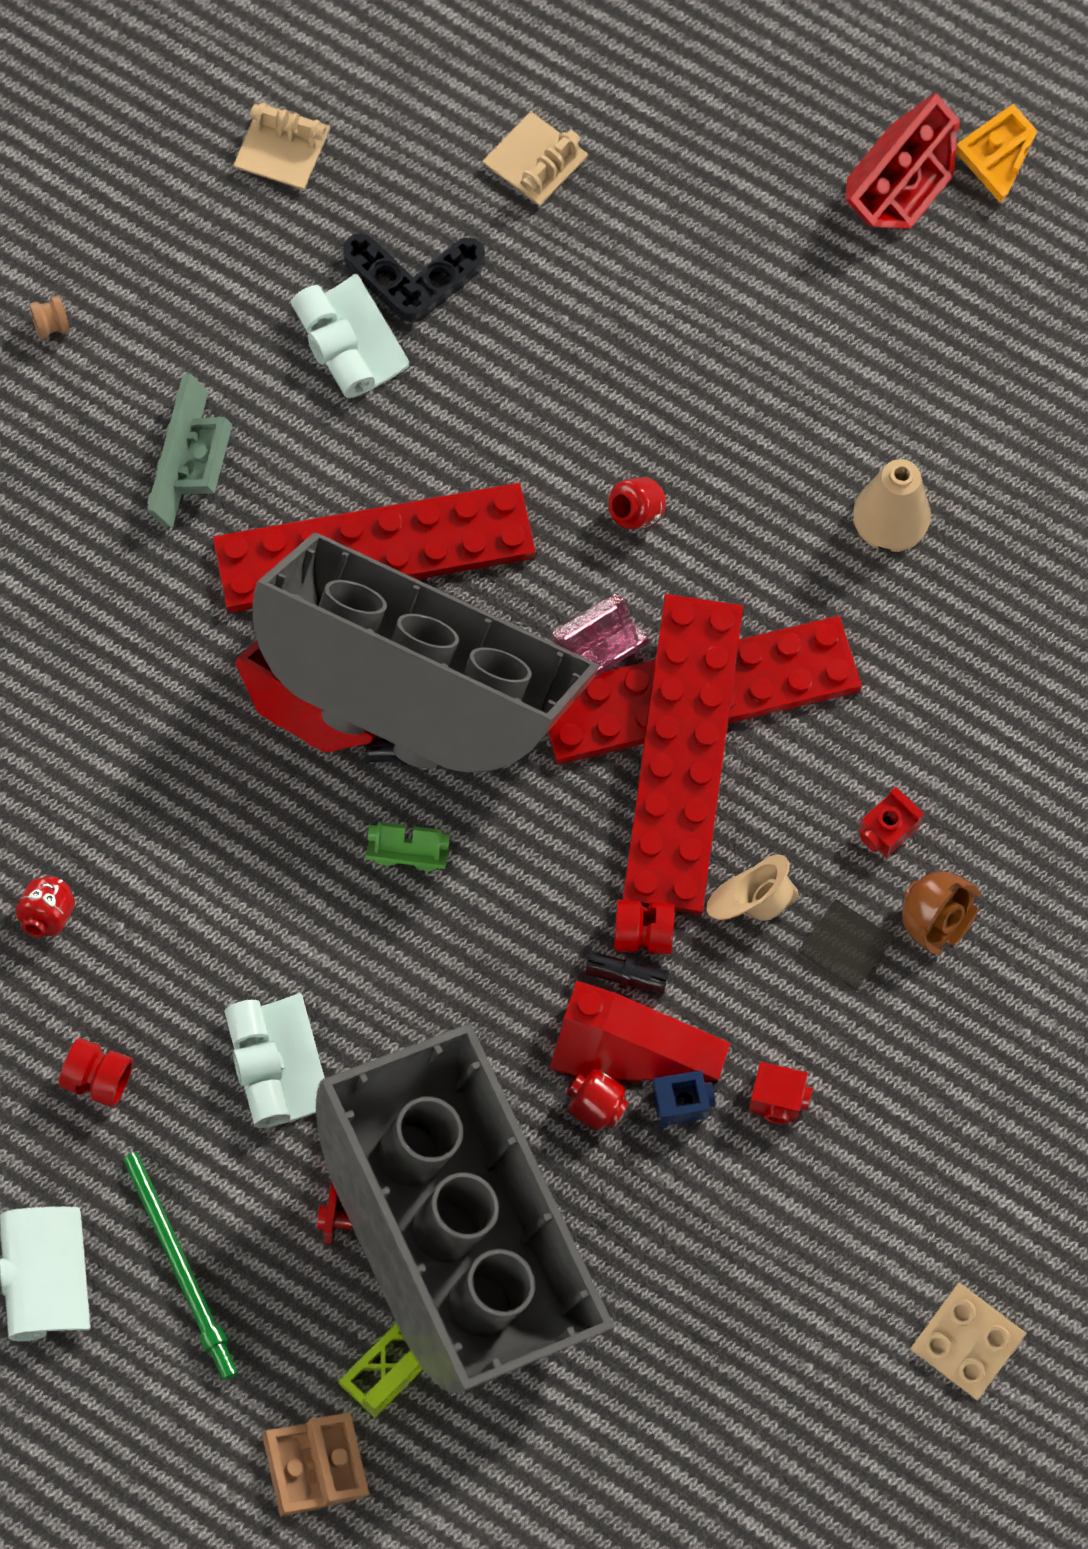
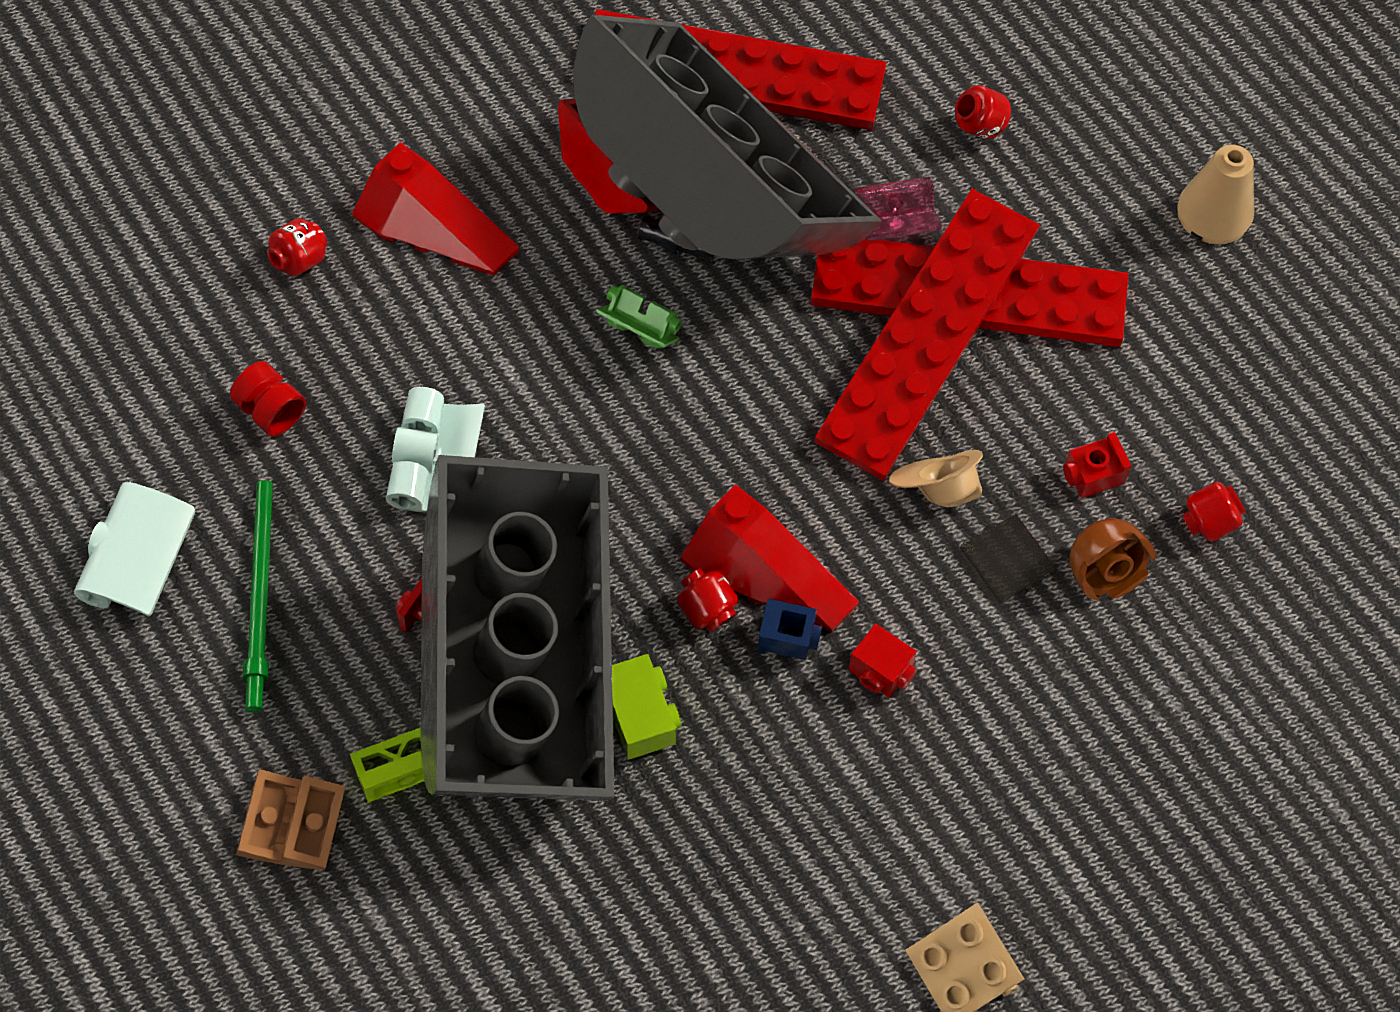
camera: 25 degrees right, 5 degrees down
(145, 818) = (421, 207): none -> red wedge
(595, 1233) = (640, 707): none -> lime brick
(626, 972) = (789, 501): black pin -> none
(644, 927) = (822, 466): red wheel -> none
(1013, 825) = (1214, 511): none -> red head

